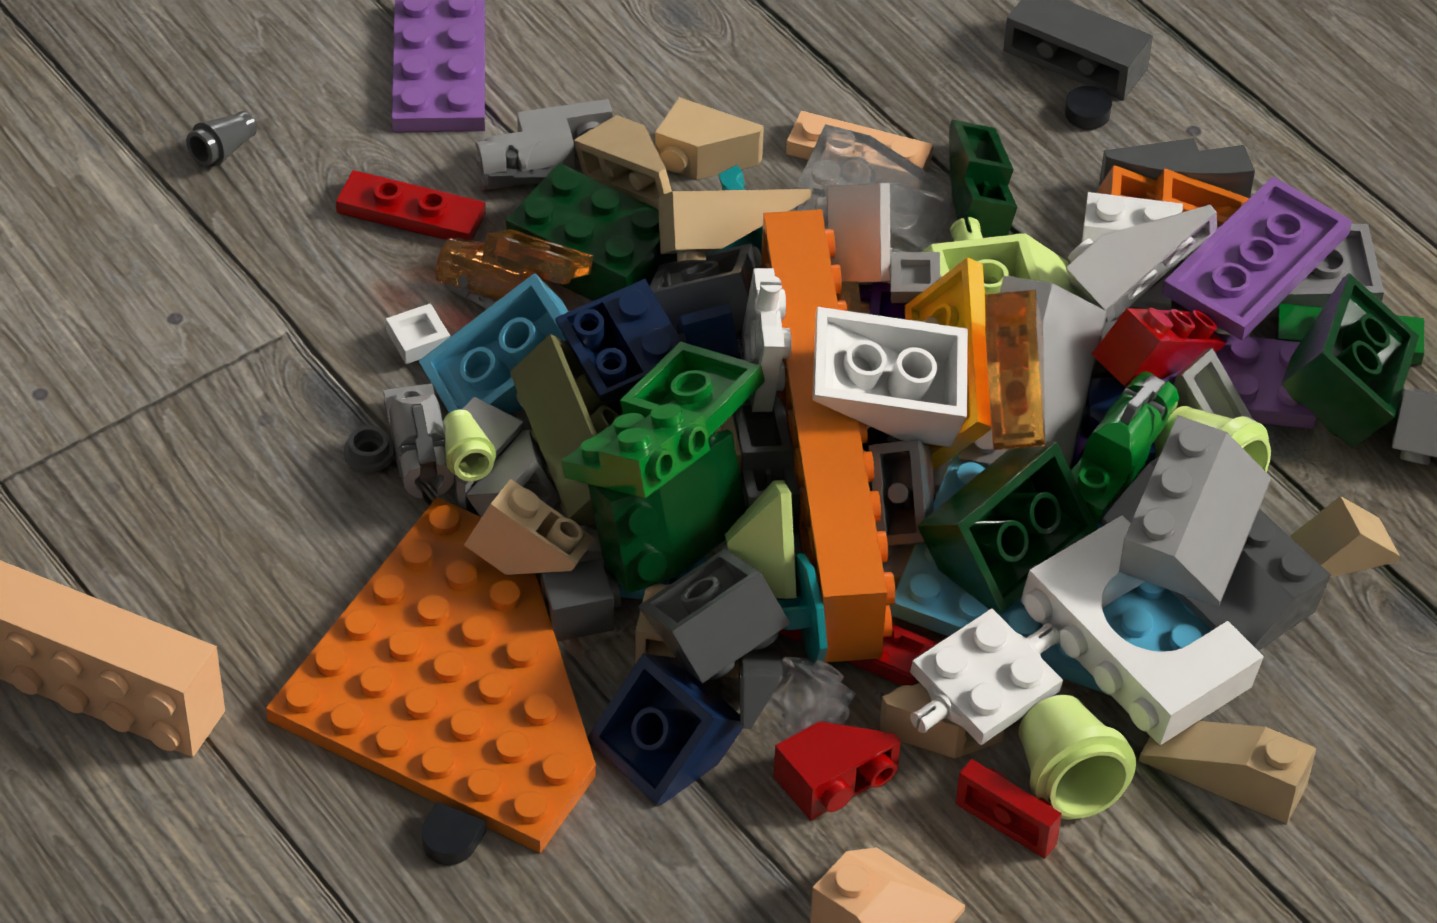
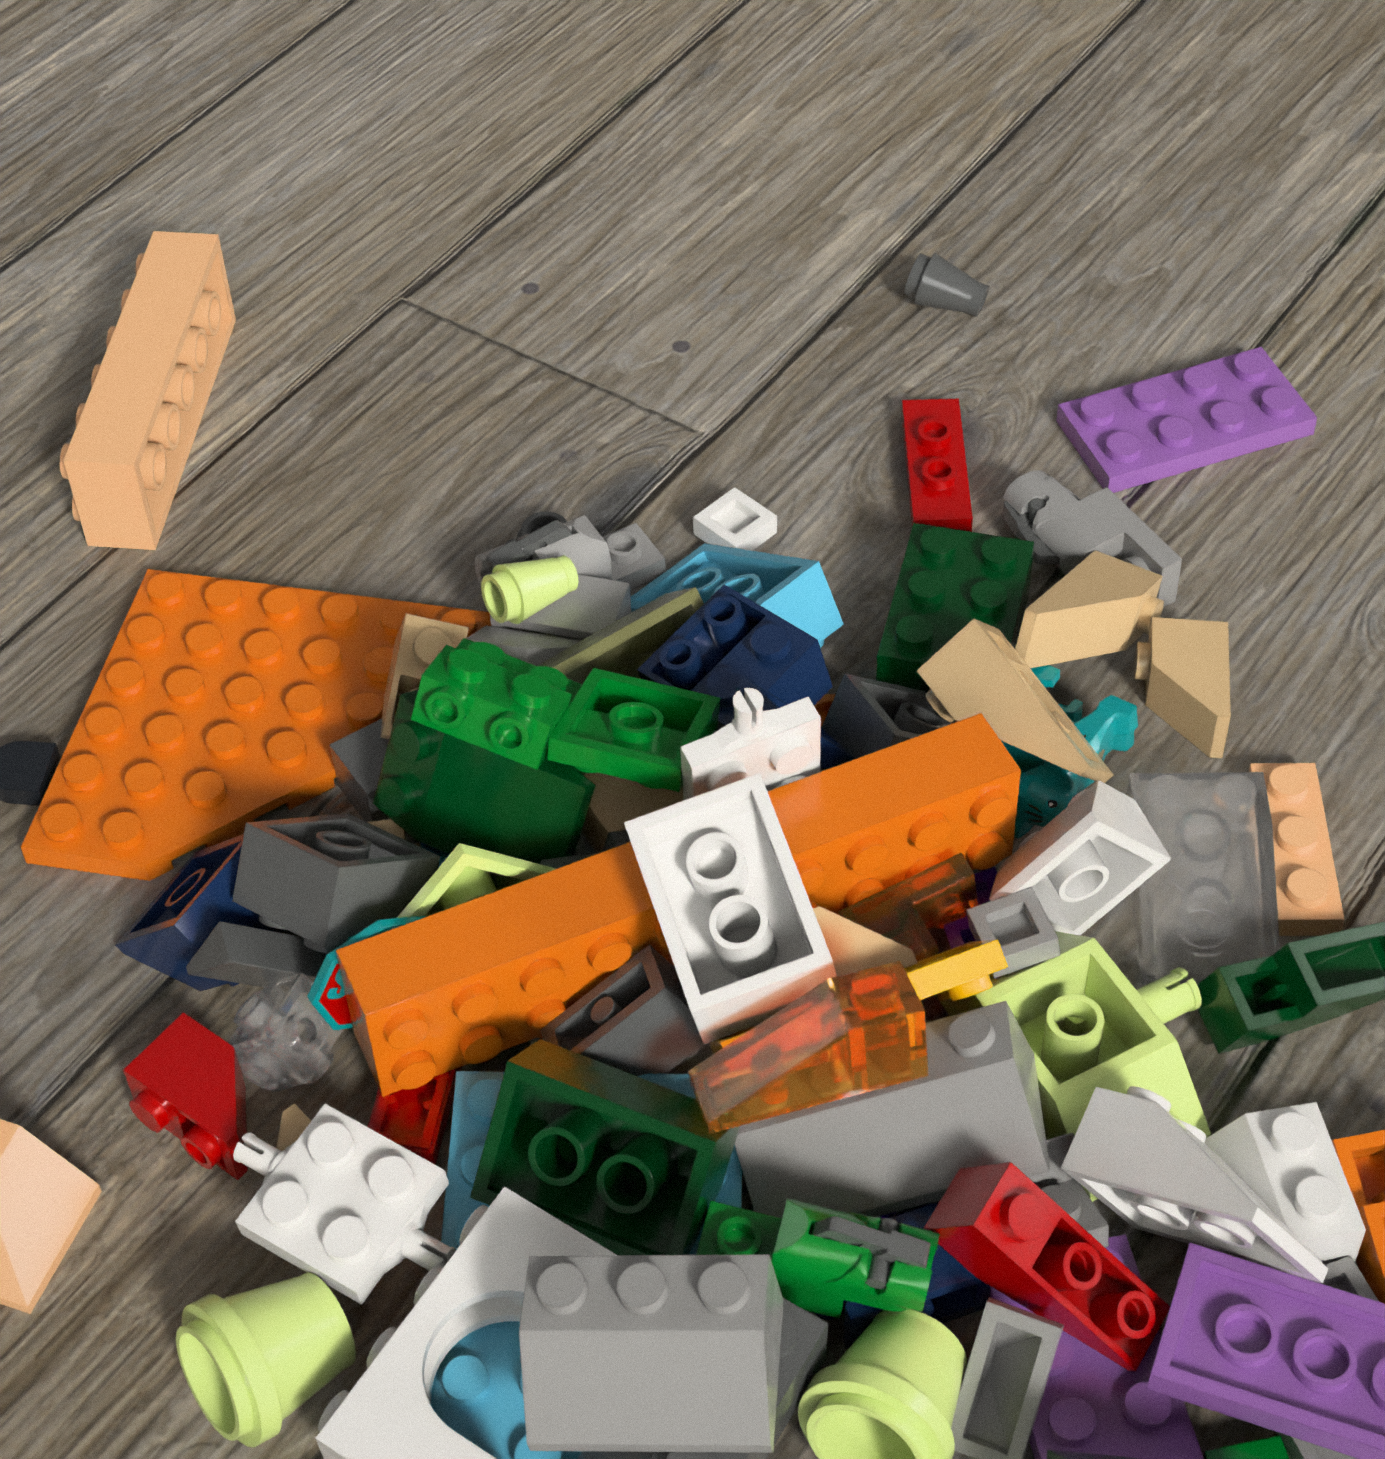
camera: 75 degrees right, 0 degrees up
(502, 262) = (860, 555): clear orange plate -> none
(1008, 808) = (193, 1272): red plate -> none

